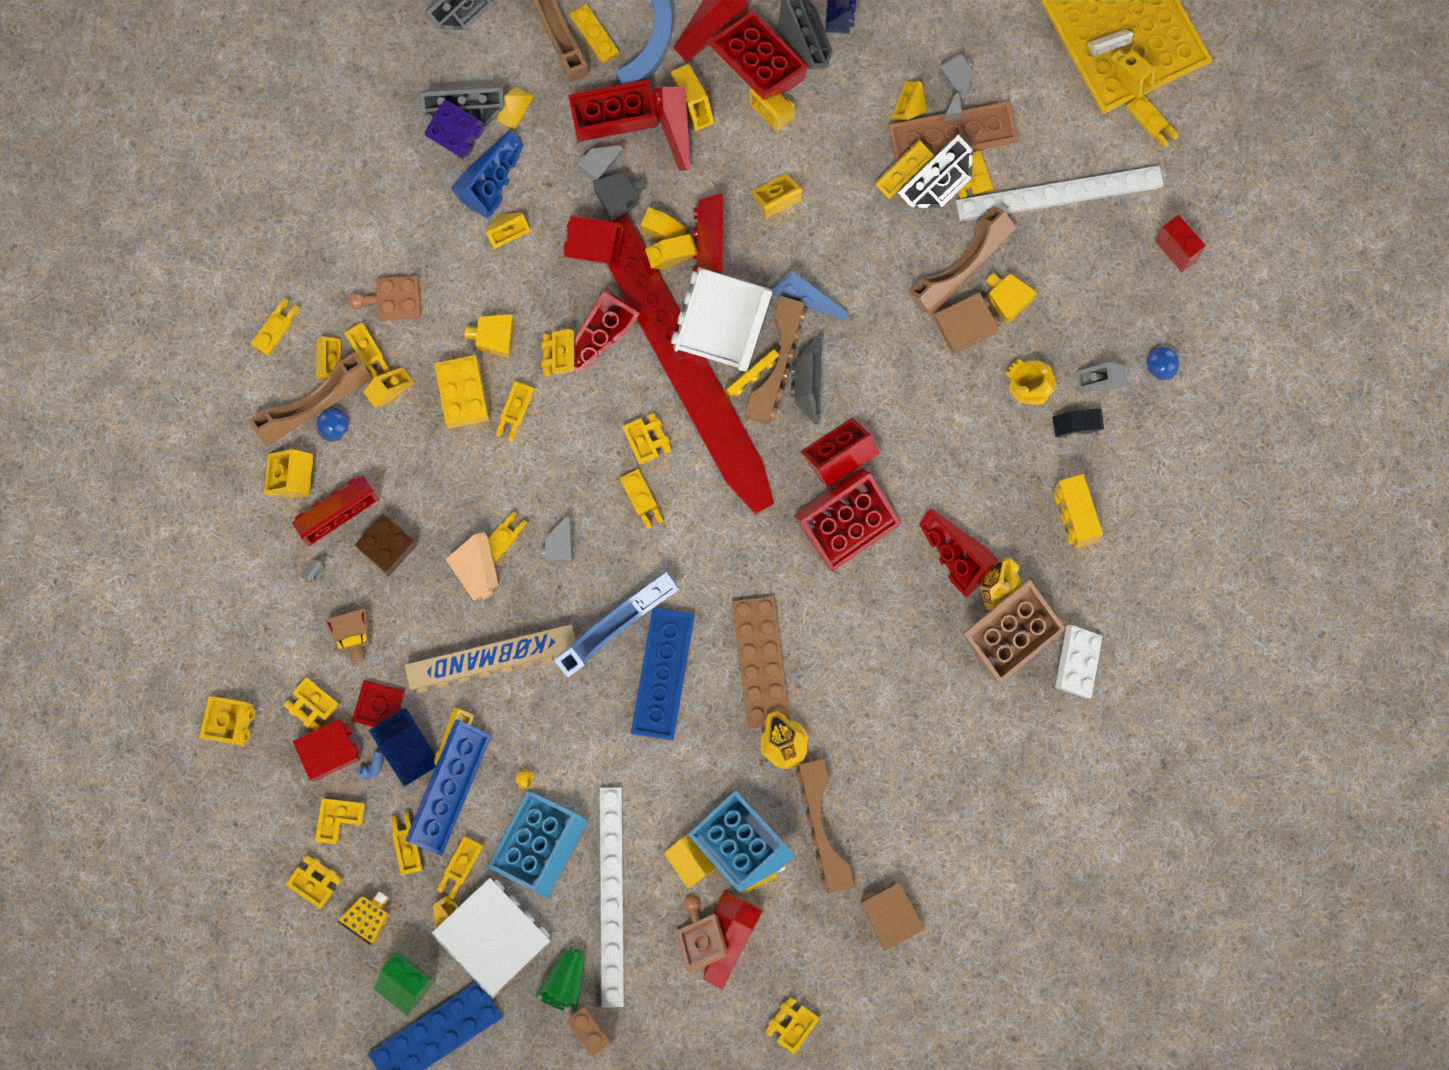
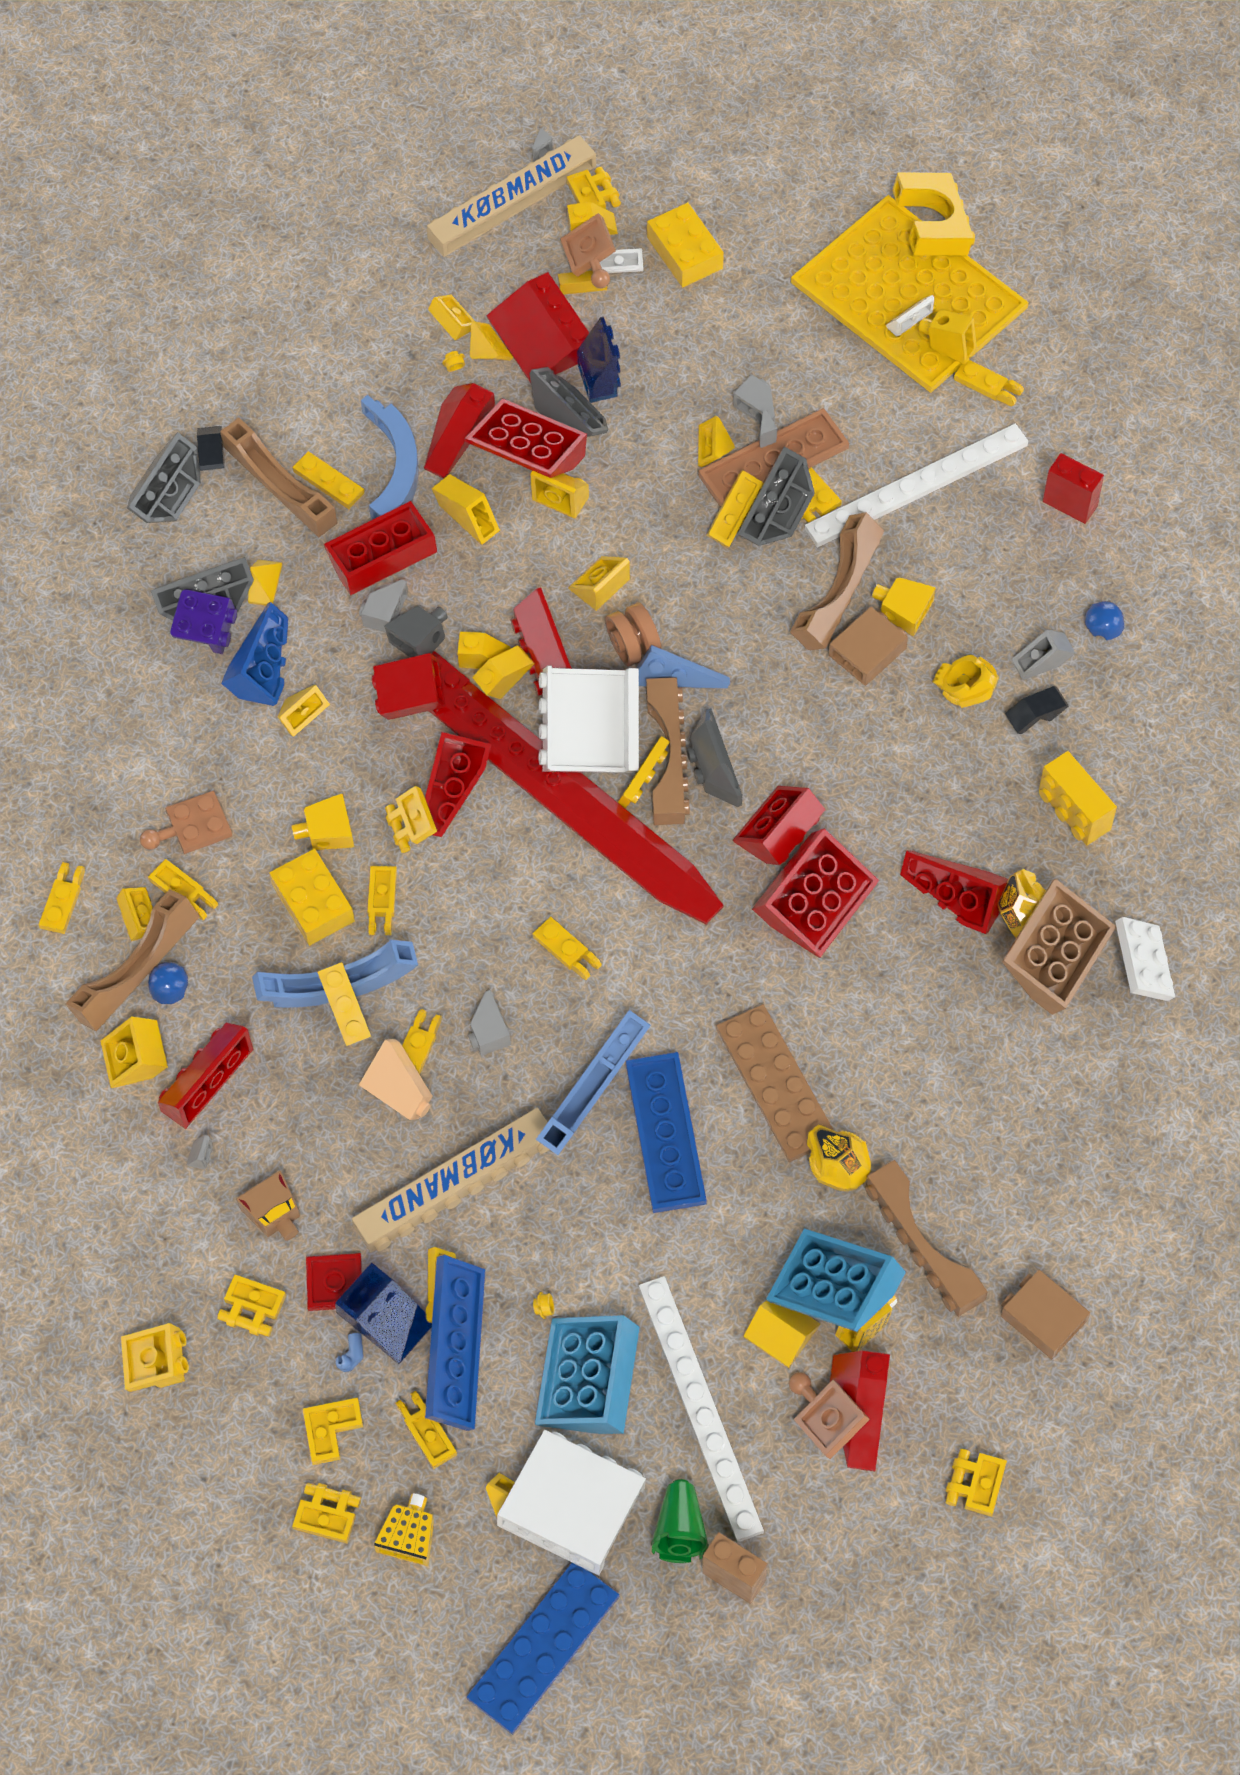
camera: 20 degrees left, 15 degrees down
(327, 750) = (289, 1351): red brick -> none
(385, 544) = (280, 1093): reddish brown brick -> none
(388, 387) = (220, 920): yellow slope -> none
(402, 983) = (481, 1591): green slope -> none
(456, 489) = (344, 1004): none -> yellow plate
(461, 865) = (502, 1430): yellow hinge -> none
(468, 470) = (365, 976): none -> medium blue arch
(641, 442) = (542, 886): yellow plate -> none
(672, 113) = (453, 530): wedge -> none
(783, 254) = (632, 633): none -> nougat wheel

